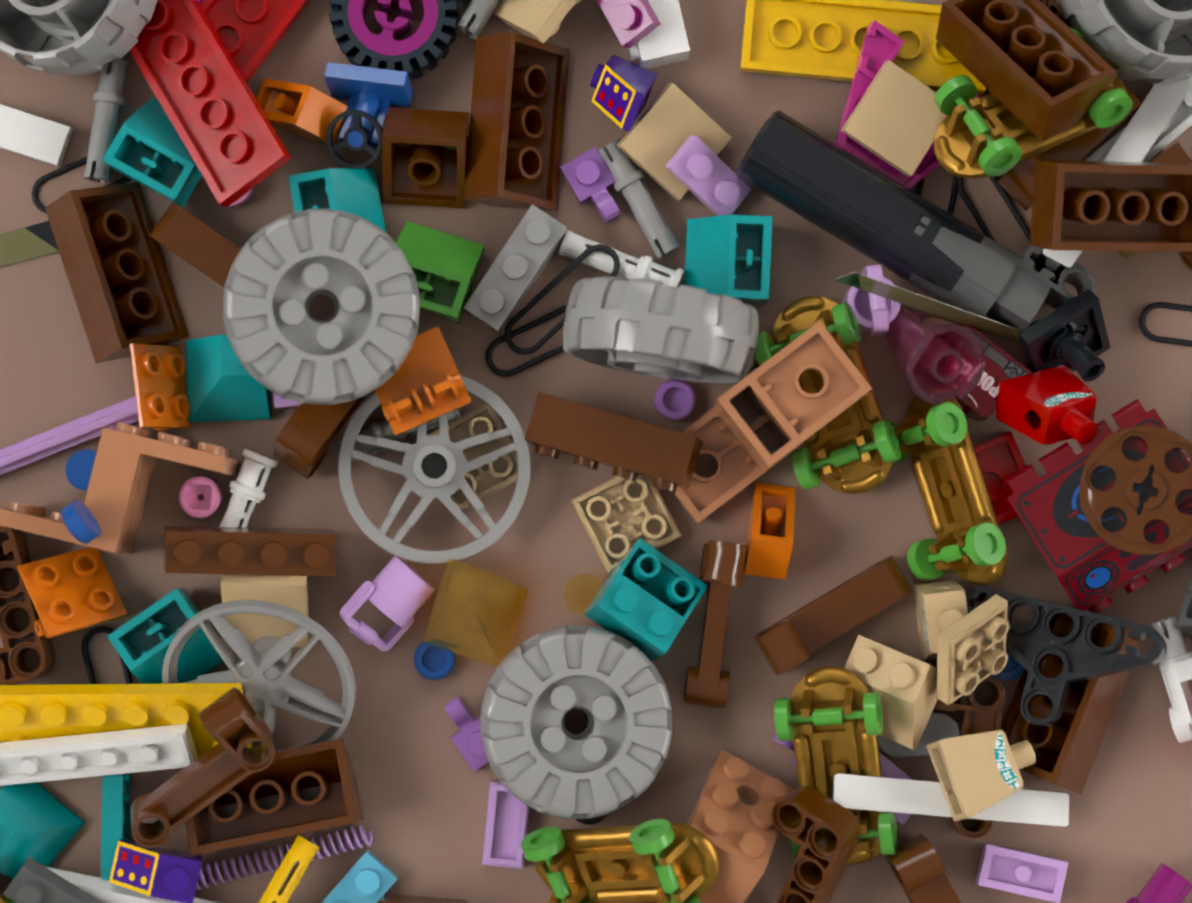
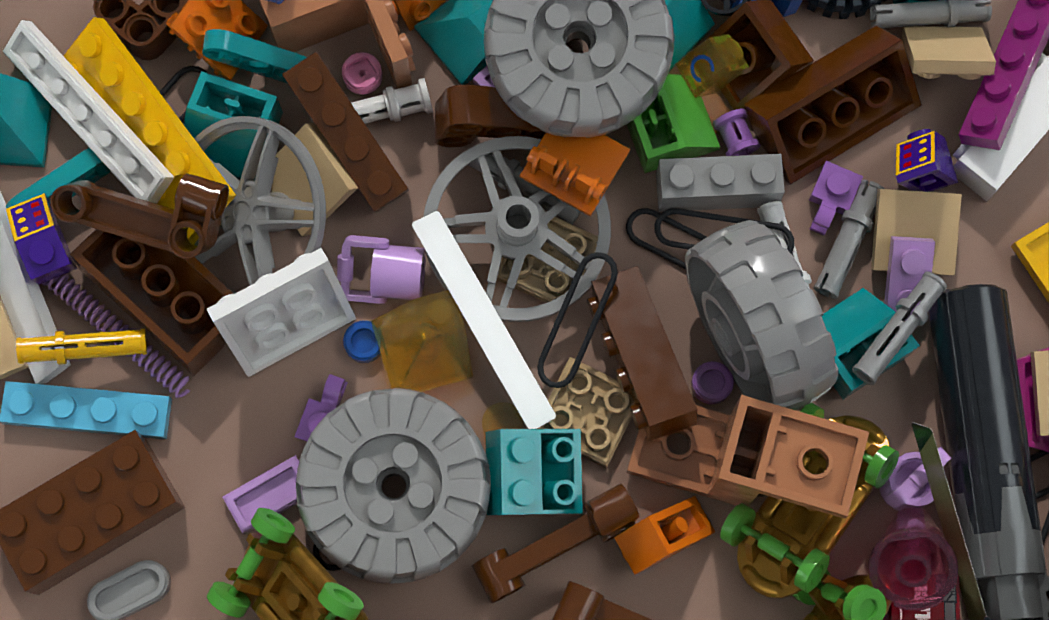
camera: 55 degrees right, 10 degrees down
(123, 580) = (249, 54): none -> teal beam
(369, 714) = (282, 312): none -> white plate
(412, 201) = (712, 65): none -> clear yellow brick
(474, 214) = (736, 133): none -> medium lavender bush
(492, 551) = (484, 320): none -> white sticker
(558, 526) = (545, 380): none -> black piece
(734, 175) = (927, 292): none -> light grey pin

